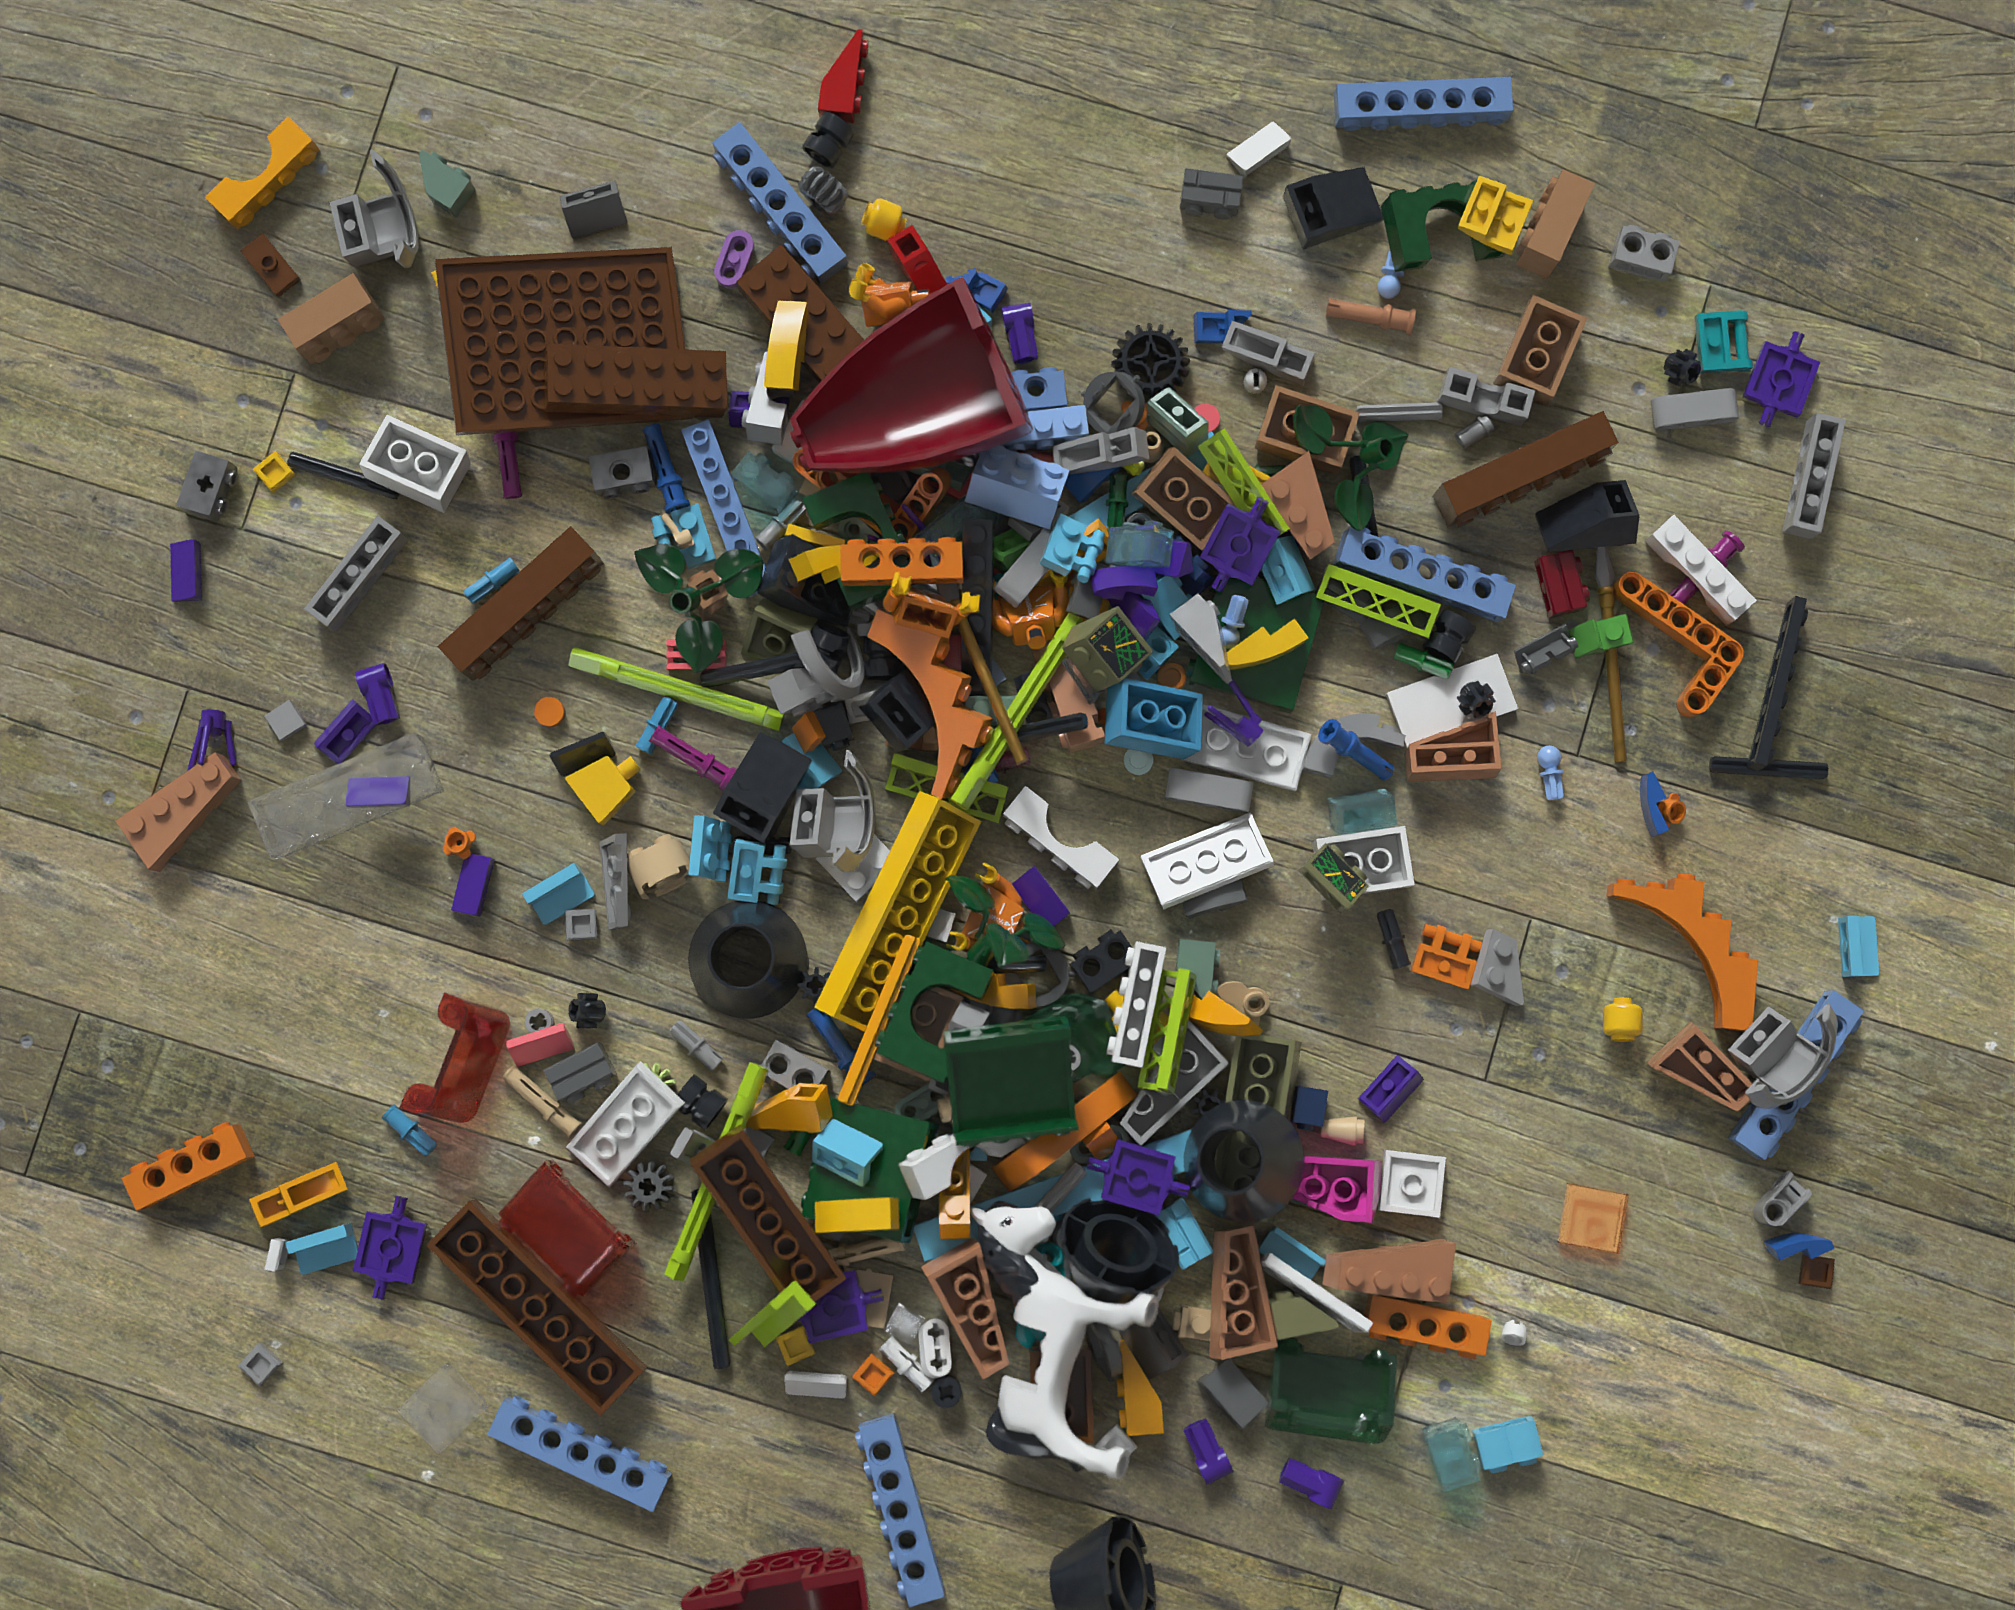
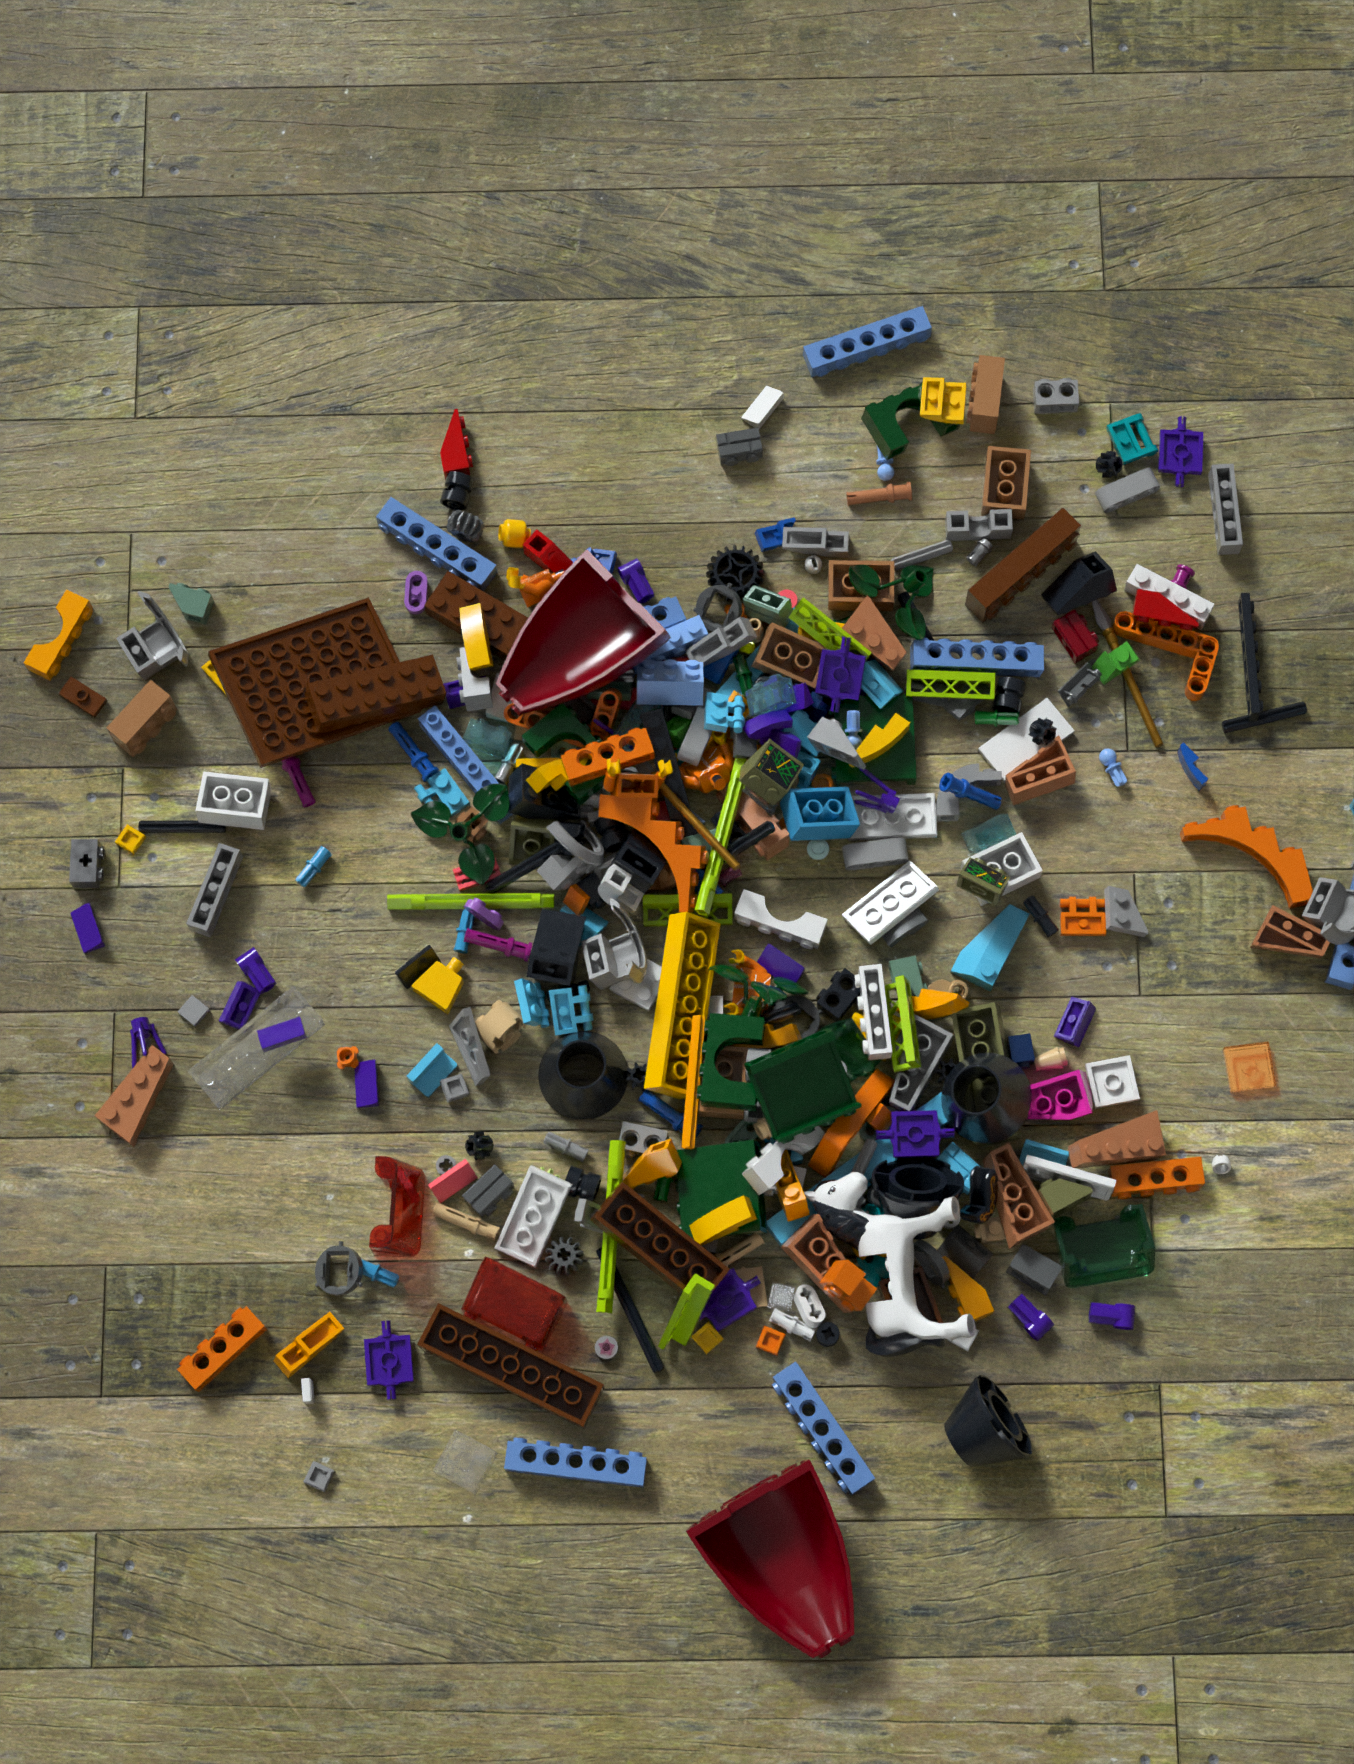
camera: 15 degrees left, 10 degrees down
(324, 1248) = (340, 1377): medium azure panel -> none
(379, 1123) = (354, 1270): none -> dark grey piece
(521, 605) = (341, 874): reddish brown brick -> none
(549, 712) = (383, 945): orange tile -> none
(593, 209) = (304, 589): dark grey panel -> none
(605, 468) = (388, 751): flat silver brick -> none
(665, 1317) = (606, 1347): none -> light grey tile
(680, 703) = (488, 917): none -> medium lavender plate
(683, 537) = (442, 793): tan hand -> none
(815, 1384) = (731, 1360): white slope -> none
(845, 1151) = (699, 1181): medium azure panel -> none
(863, 737) = (616, 886): none -> white brick
(985, 1351) = (848, 1285): none -> orange brick
(1195, 1284) = (982, 1196): none -> black animal
(1311, 964) = (987, 953): none -> medium azure wedge
(1331, 205) = (826, 429): black slope -> none
(1451, 1453) = (1205, 1261): clear light blue brick -> none
(1507, 1444) = (1243, 1242): medium azure brick -> none
(1622, 1020) = (1222, 921): yellow head -> none
(1672, 809) = (1207, 765): orange plate -> none
(1680, 582) = (1156, 607): none -> red slope

